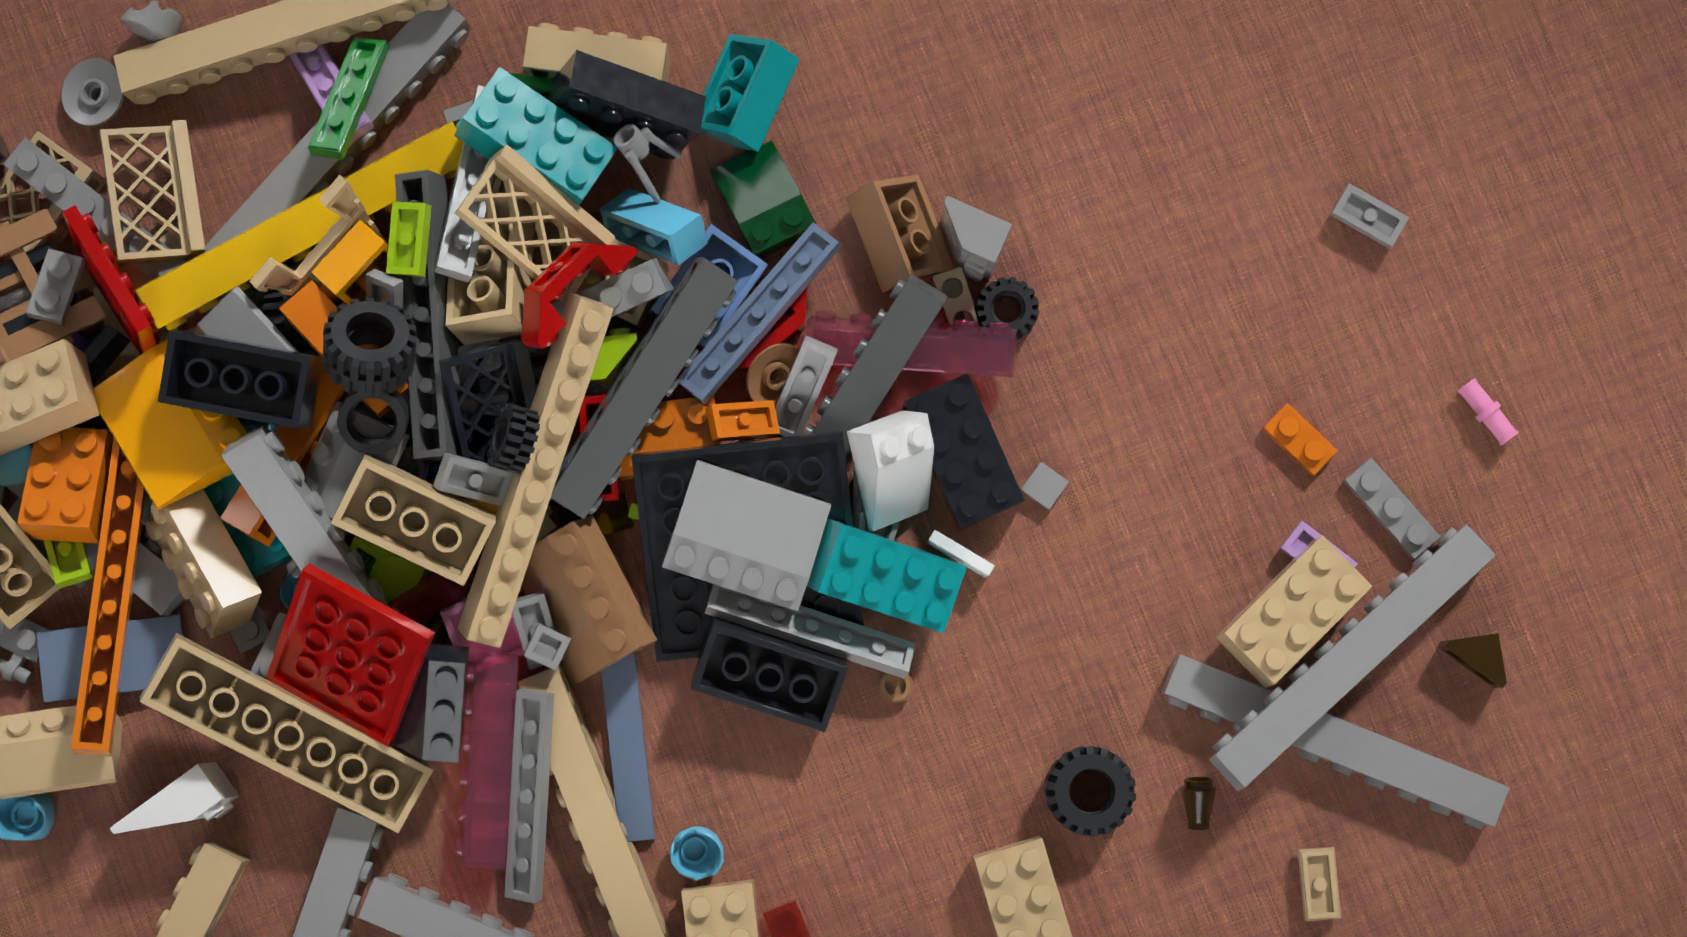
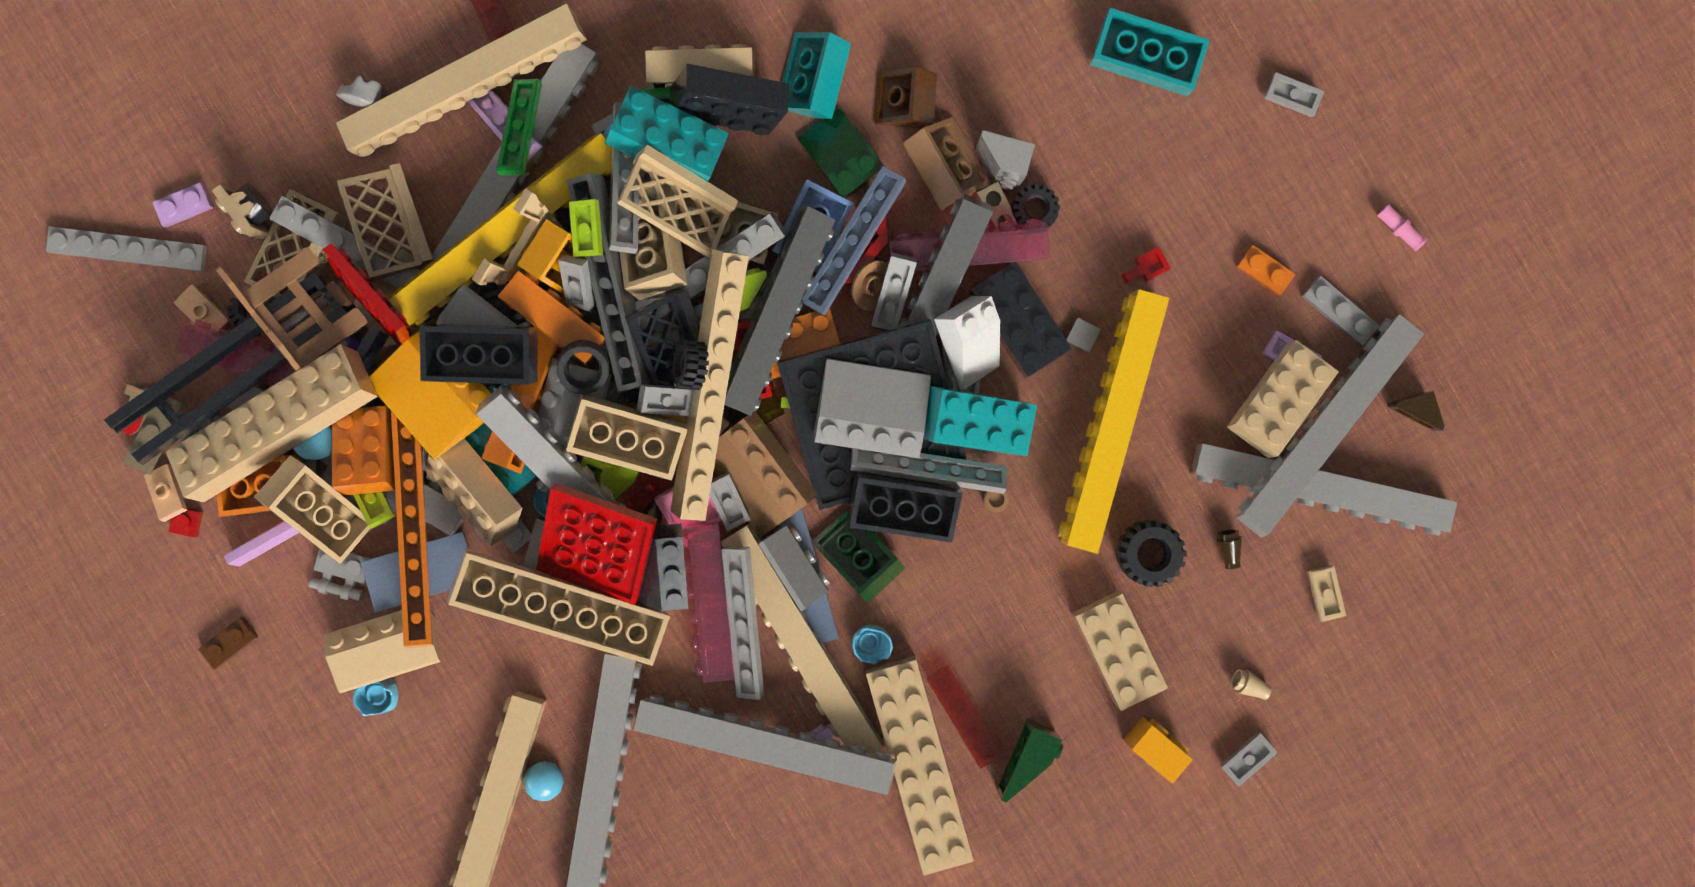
camera: 10 degrees left, 5 degrees up
(55, 287) = (326, 305): light grey plate -> none
(82, 88) = (317, 149): light grey dish -> none
(193, 796) = (501, 661): white slope -> none
(369, 324) = (571, 297): black tyre -> none
(540, 318) = (694, 272): red slope -> none
(546, 646) = (738, 513): light grey plate -> none
(610, 730) = (795, 566): none -> light grey slope
(635, 147) = (741, 130): light grey plant -> none
(654, 227) = (765, 187): medium azure brick -> none
(698, 733) = (858, 557): none -> dark green slope
(742, 421) = (854, 323): orange plate -> none
(860, 140) = (906, 97): none -> reddish brown slope
(960, 554) = (1029, 395): white tile -> none
(1066, 605) = (1113, 420): none -> yellow brick
(1145, 407) = (1148, 265): none -> red plate
(1186, 131) = (1149, 52): none -> teal brick

